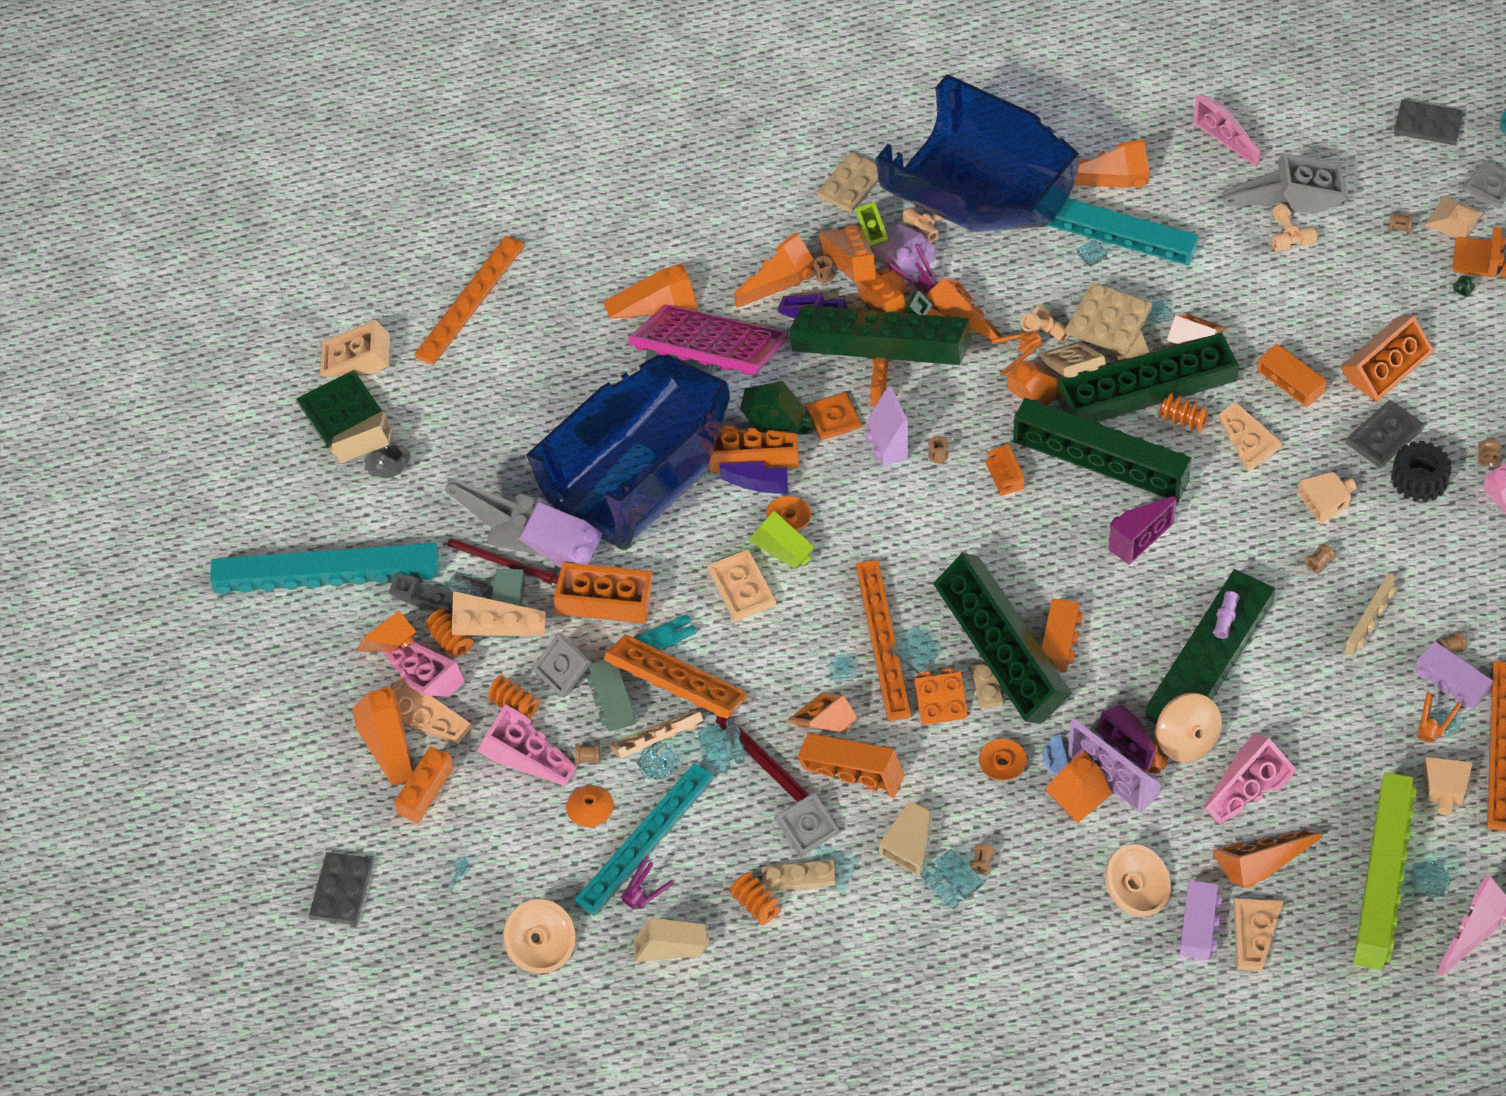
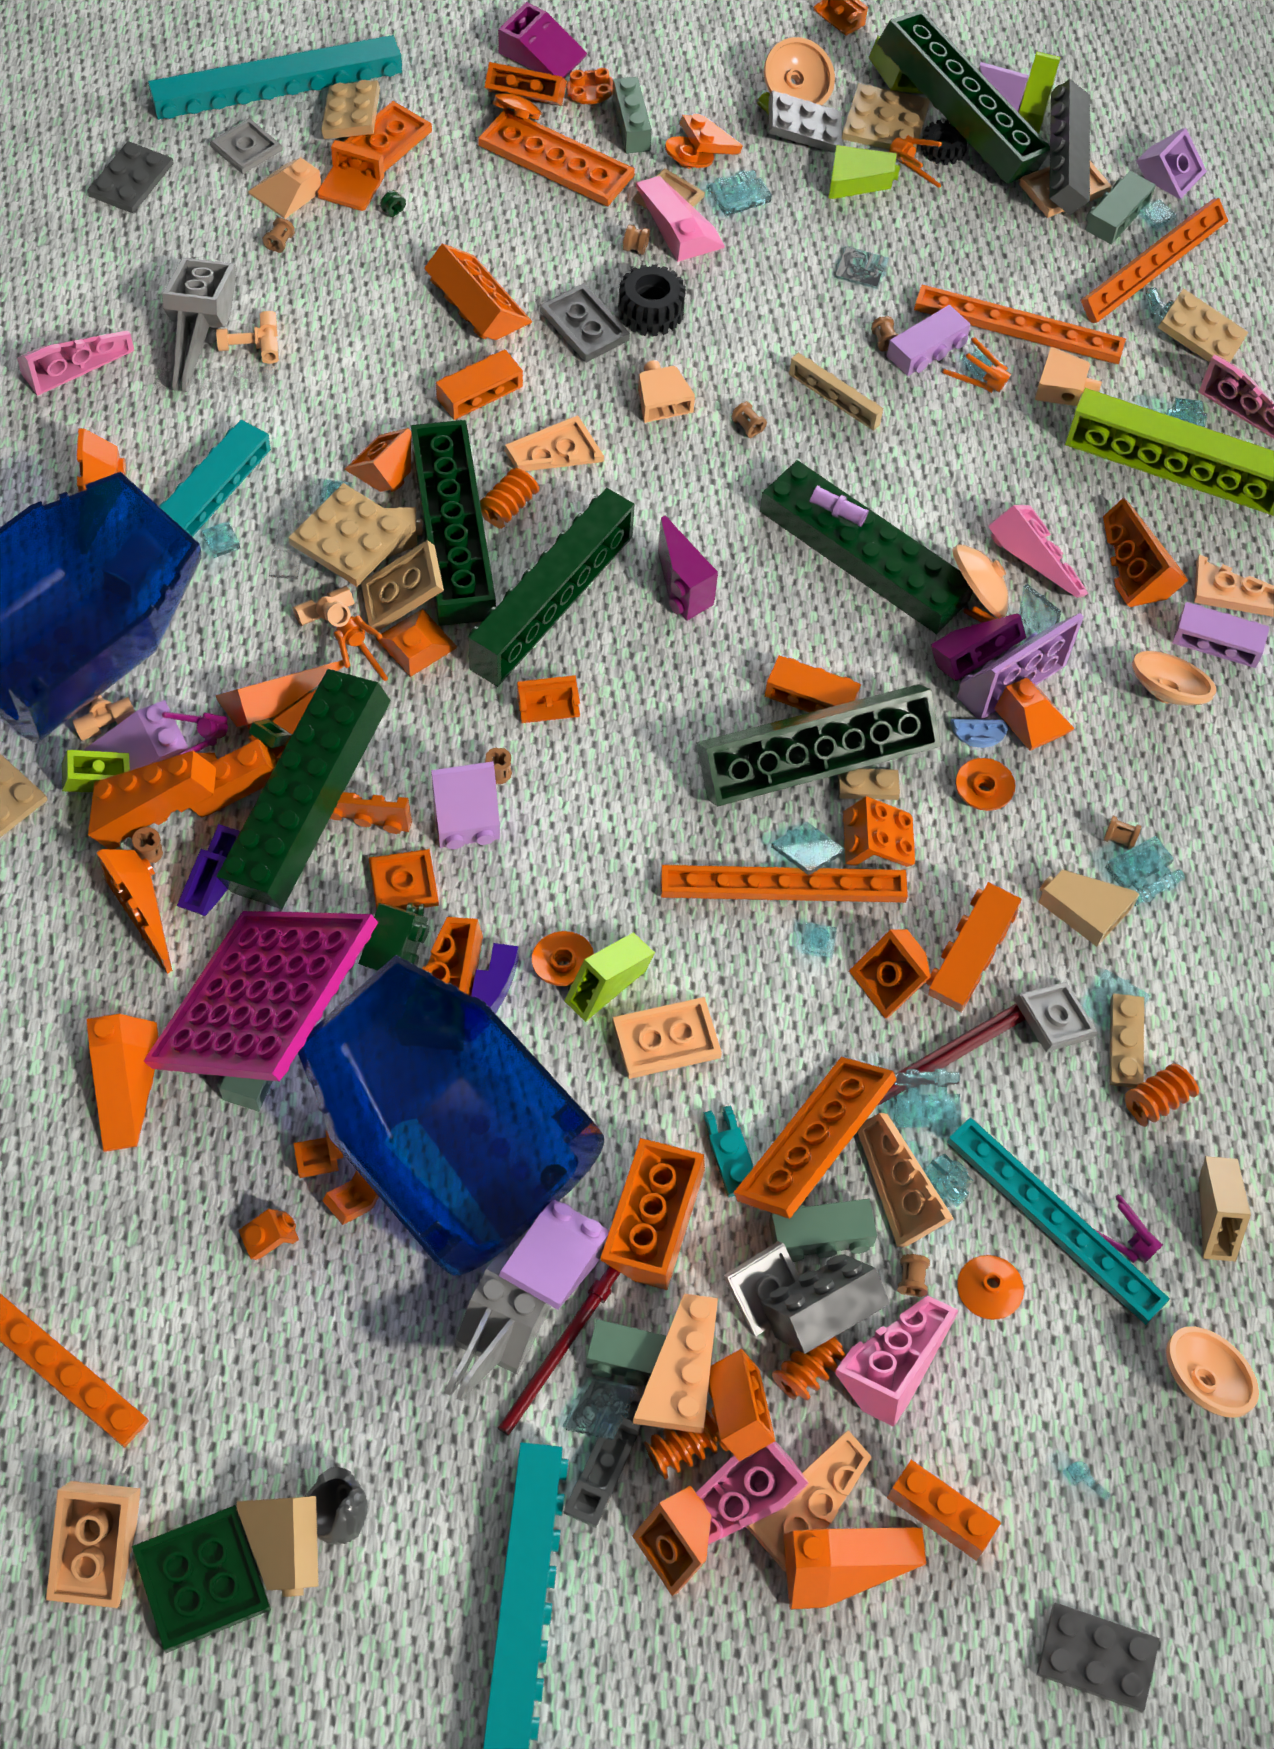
camera: 90 degrees left, 5 degrees up
(472, 651) = (740, 1405): none -> orange brick
(551, 692) = (824, 1302): none -> dark grey brick
(561, 395) = (268, 1232): none -> orange bracket
(1171, 777) = (1037, 611): none -> clear light blue piece

